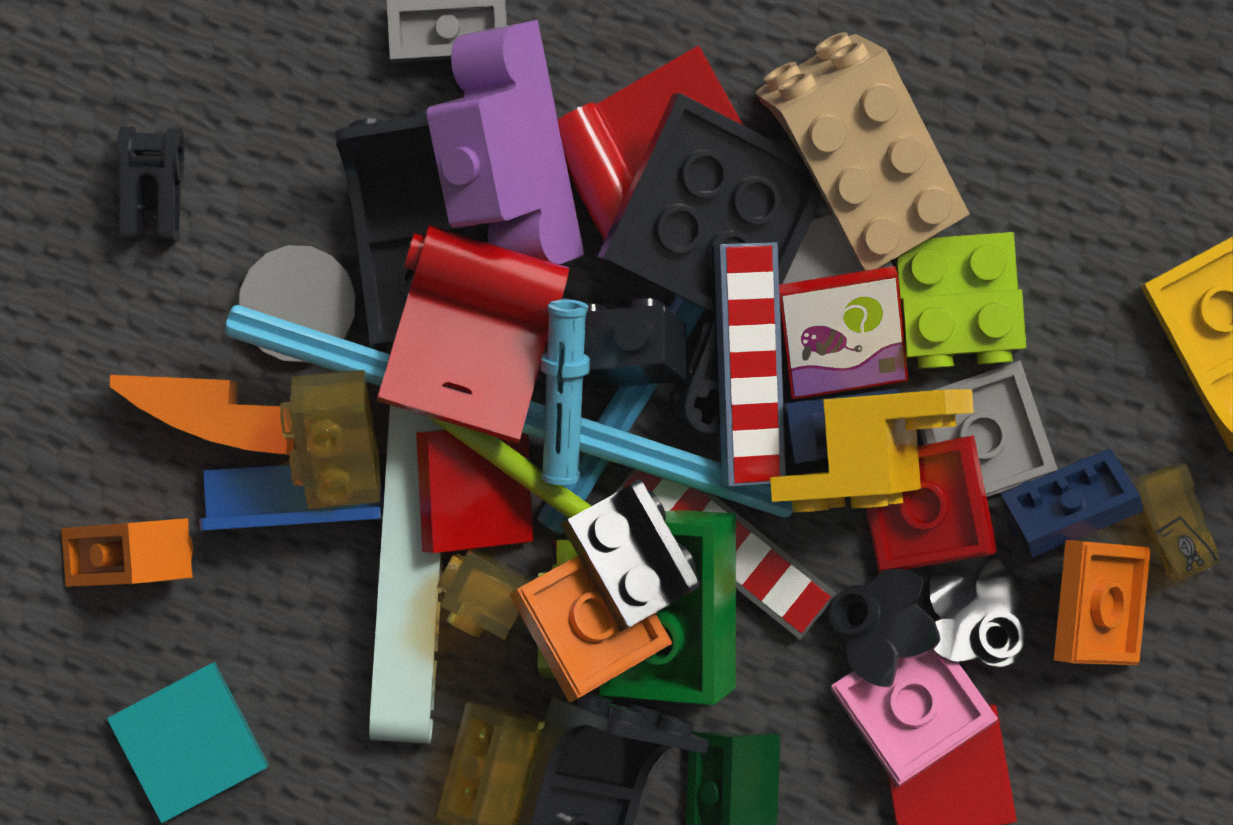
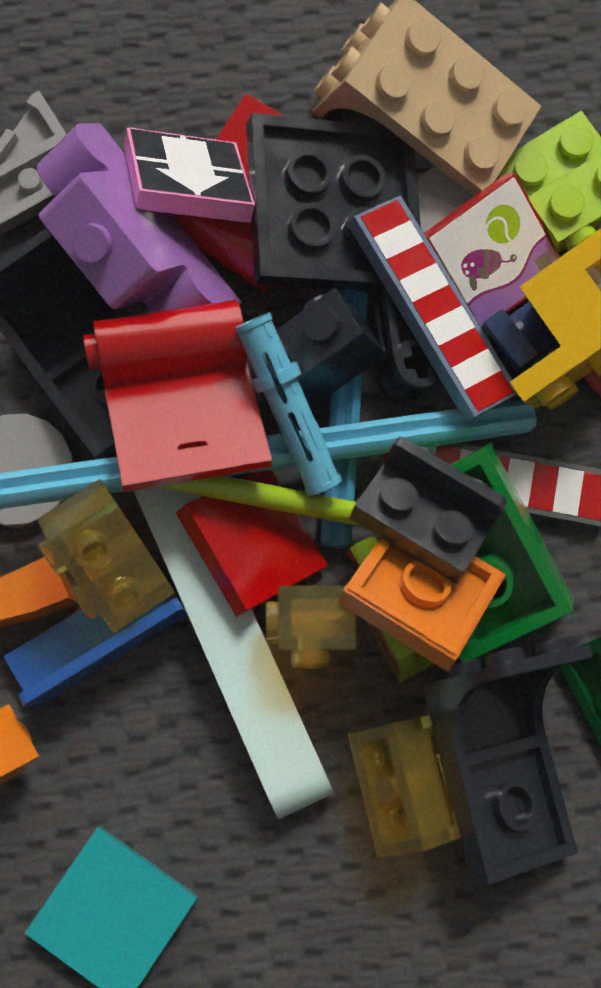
camera: 30 degrees left, 10 degrees down
(591, 116) = (187, 175): none -> tile

